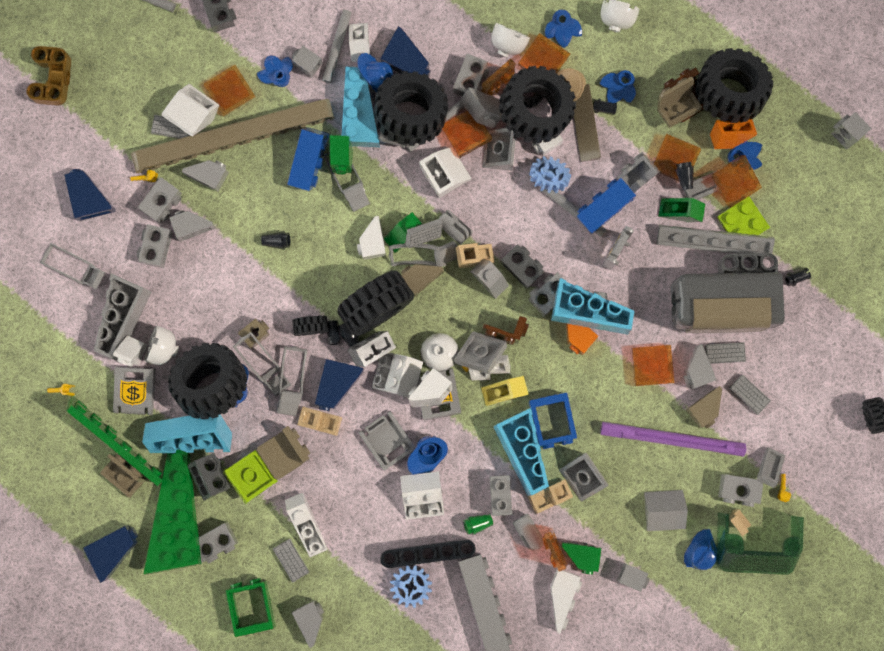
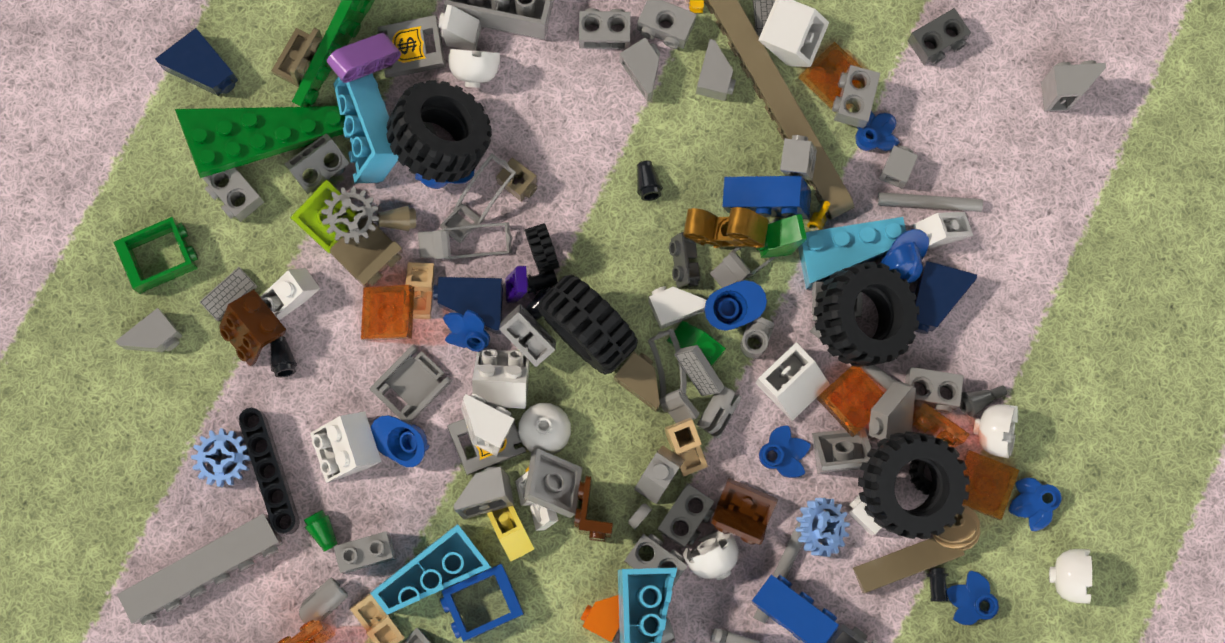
camera: 75 degrees right, 5 degrees down
(137, 425) = (363, 57): none -> medium lavender beam
(246, 458) = (337, 218): none -> light grey gear
(252, 74) = (860, 98): none -> light grey brick
(264, 423) = (398, 218): none -> dark tan cone
(287, 127) = (798, 157): none -> light grey brick
(321, 547) = (250, 326): none -> reddish brown bracket
(329, 183) = (740, 229): none -> pearl gold beam
(331, 125) = (818, 218): none -> yellow hand
(331, 226) = (684, 271): none -> dark grey hinge
(332, 446) = (387, 312): none -> clear orange plate
(333, 349) = (516, 284): none -> dark purple plate
(347, 529) = (282, 359): none -> black cone
(358, 392) = (467, 331): none -> blue plate
(382, 198) = (735, 305): none -> blue piece
(401, 187) = (761, 330): none -> light grey piece
(476, 401) = (485, 493): none -> light grey slope
(485, 49) = (975, 401): none -> dark grey cone
(492, 186) = (788, 452): none -> blue plate
(515, 298) = (639, 516): none -> light grey tile
(528, 226) = (743, 512): none -> reddish brown bracket
(554, 250) = (713, 556): none -> white cylinder

